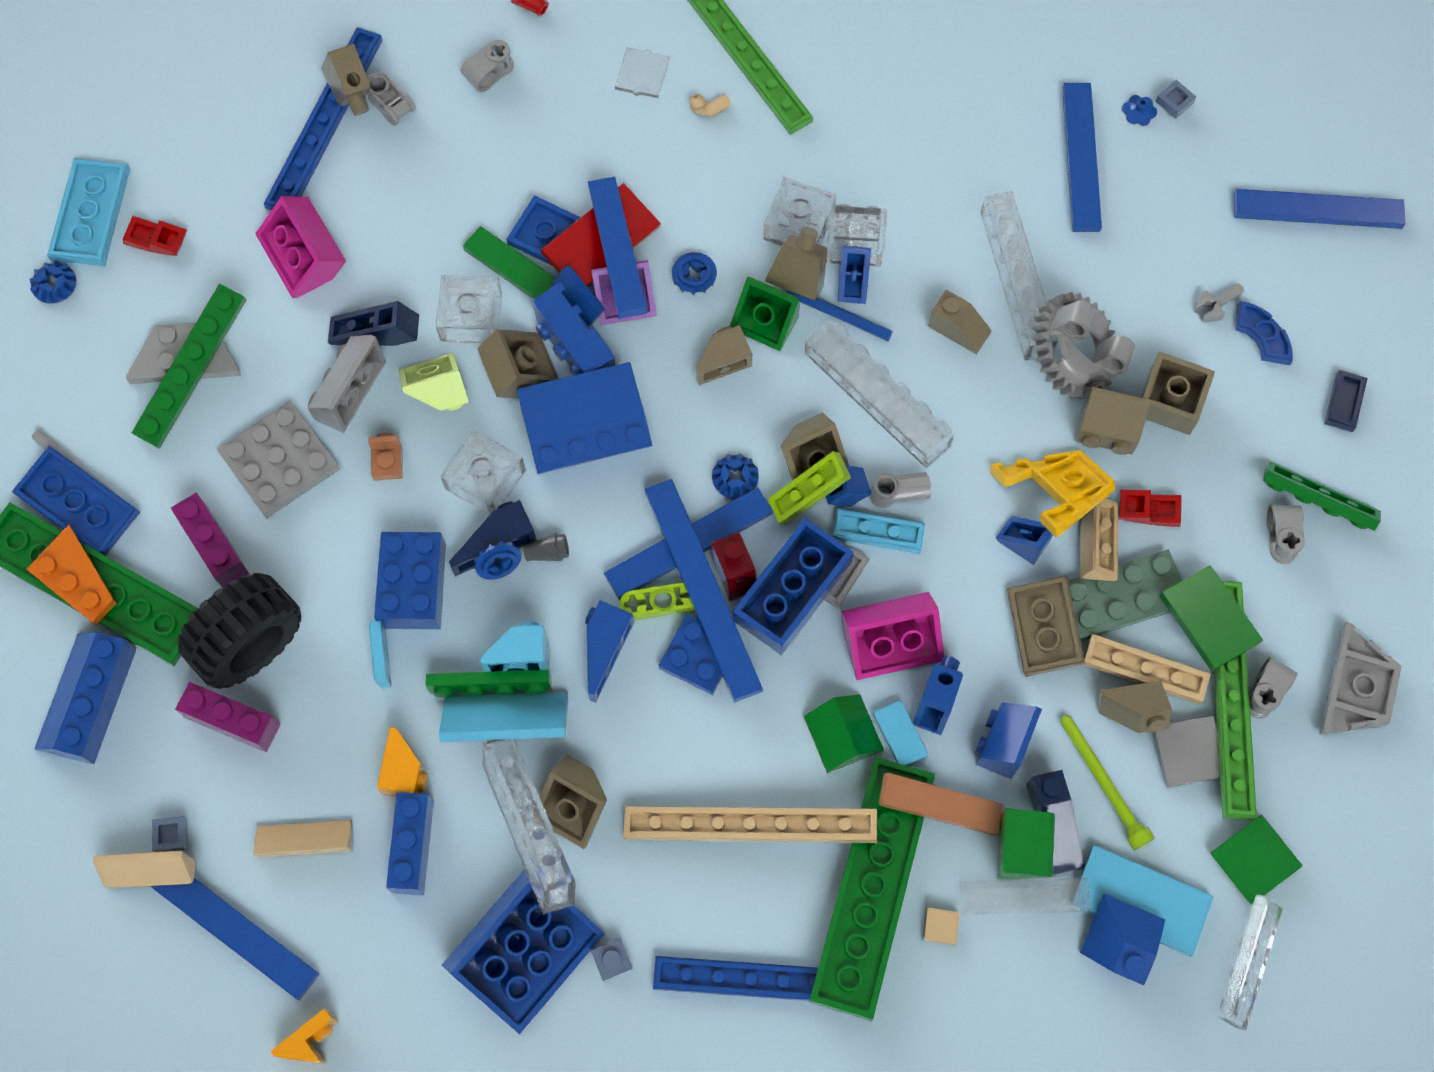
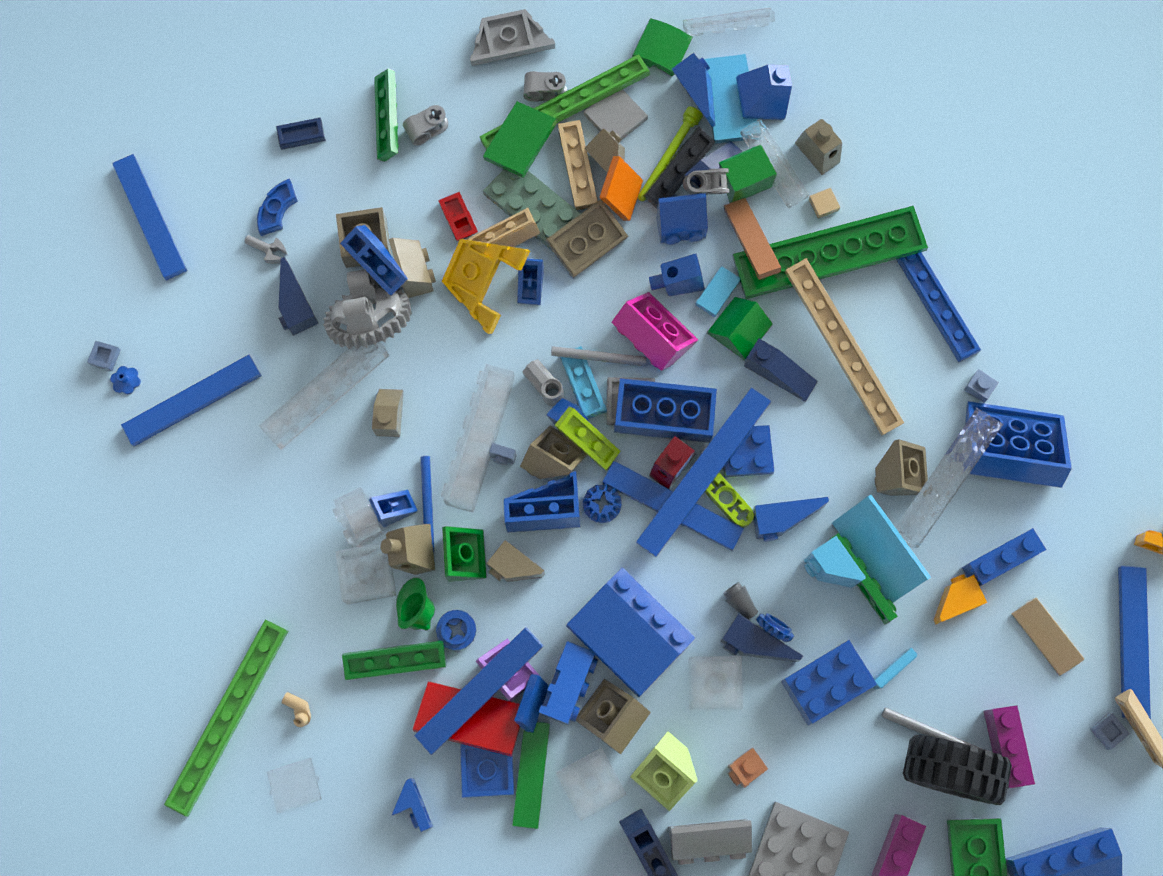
camera: 120 degrees left, 5 degrees up
(295, 656) = (918, 726): none -> light grey bar
(560, 156) = (411, 798): none -> blue slope
(700, 204) = (394, 660): none -> green plate
(737, 244) = (414, 606): none -> green piece
(762, 416) = (544, 507): none -> blue wedge
(766, 741) = (780, 370): none -> dark blue slope
(846, 405) = (502, 454): none -> sand blue plate
(899, 557) = (598, 356): none -> light grey bar
(1013, 961) = (821, 146): none -> dark tan torso
(1033, 786) = (712, 181): none -> light grey piece
(1082, 785) = (673, 174): none -> black tile
(1085, 692) = (621, 188): none -> orange tile
(1137, 372) = (374, 258): none -> blue slope
(1138, 294) = (293, 305): none -> dark blue slope
(1175, 862) = (696, 81): none -> blue slope

